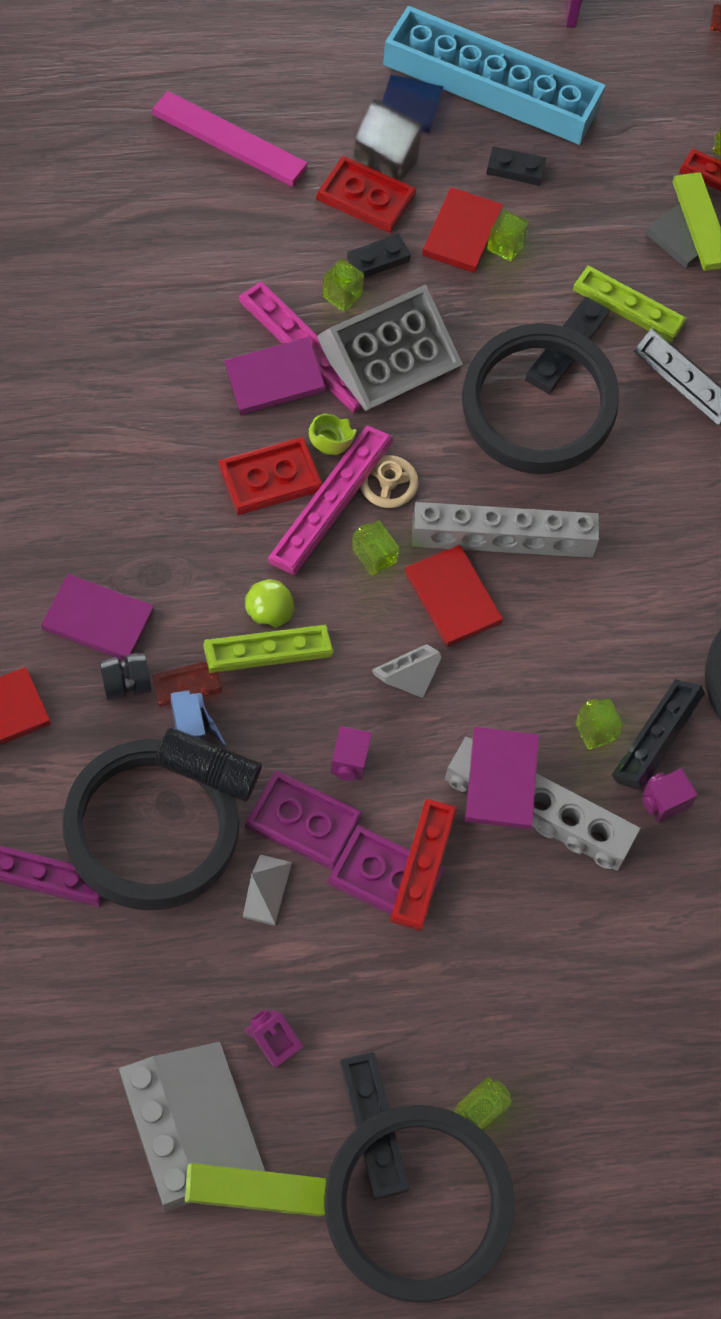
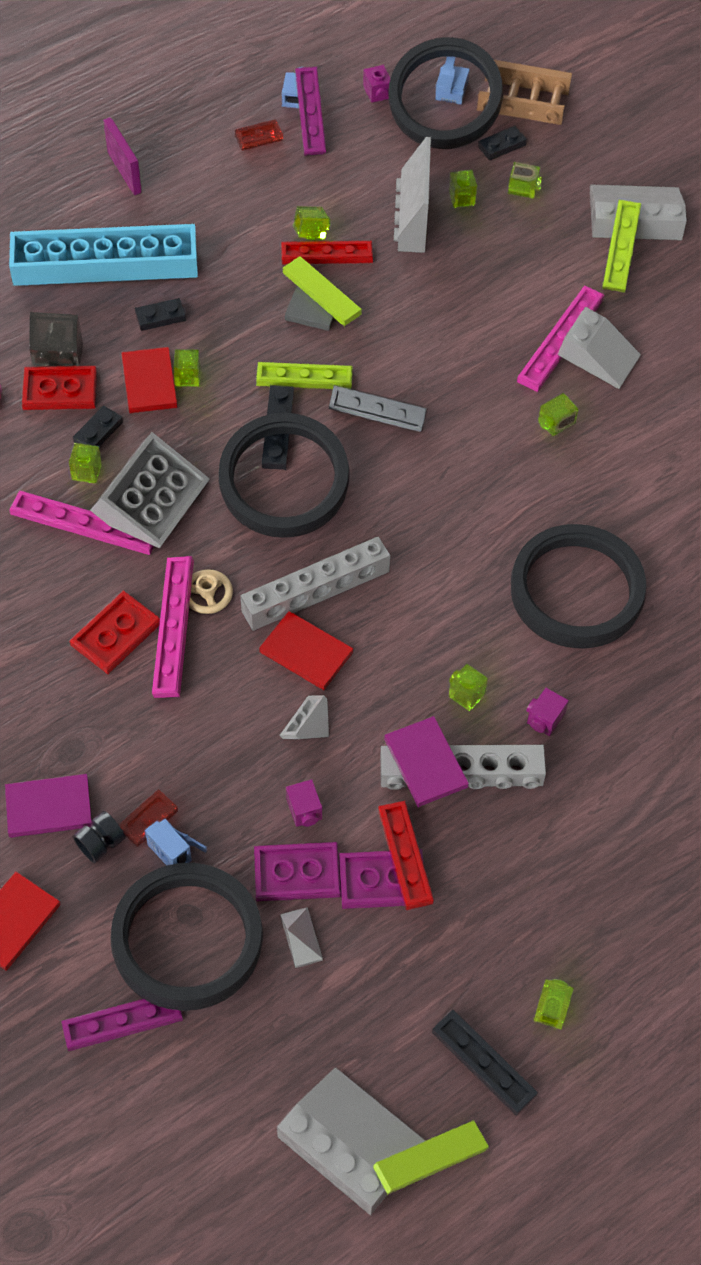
camera: 25 degrees left, 5 degrees down
(208, 762) = (196, 866): black piece -> none
(267, 648) = (193, 760): lime tile -> none
(269, 603) = (174, 726): lime hair -> none
(273, 1036) = (373, 1040): magenta bracket -> none
(274, 375) = (74, 556): magenta tile -> none
(331, 434) = (144, 577): lime hair -> none
(375, 547) = (228, 644): clear neon green brick -> none
(414, 99) = (52, 299): clear blue tile -> none
(500, 1194) = (606, 1060): black tyre -> none
(658, 734) = (513, 672): black plate -> none

